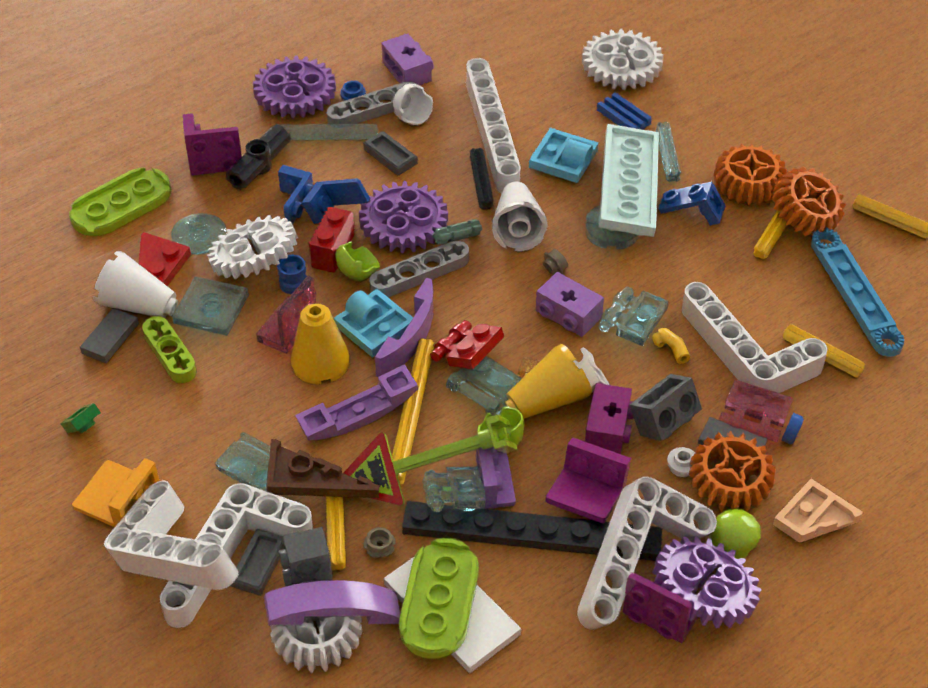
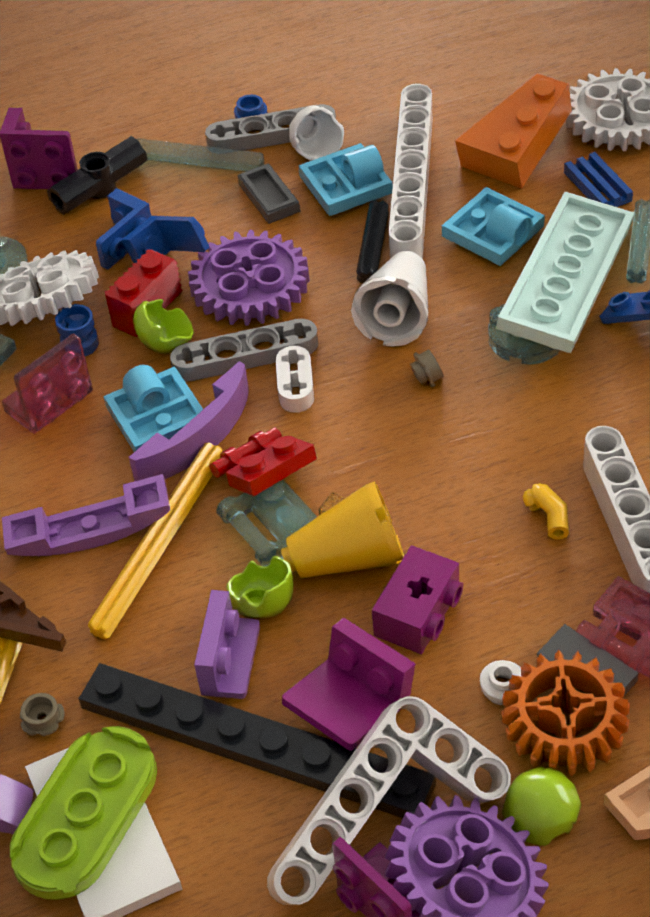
camera: 20 degrees right, 0 degrees up
(294, 86) = (159, 103): medium lavender gear -> none
(318, 347) = (66, 430): yellow cone -> none
(378, 465) = (77, 614): lime piece -> none
(407, 60) = (333, 77): medium lavender brick -> none
(446, 134) = (346, 178): none -> medium azure plate
(457, 231) = (310, 307): sand green axle -> none
(457, 486) = (161, 658): clear light blue plate -> none
(469, 282) = (299, 378): none -> white beam
(559, 85) = (517, 131): none -> orange wedge
(569, 304) = (423, 429): medium lavender brick -> none
(589, 367) = (414, 526): white plate -> none
(640, 319) = (514, 467): clear light blue plate -> none
(666, 407) = (499, 589): dark grey brick -> none

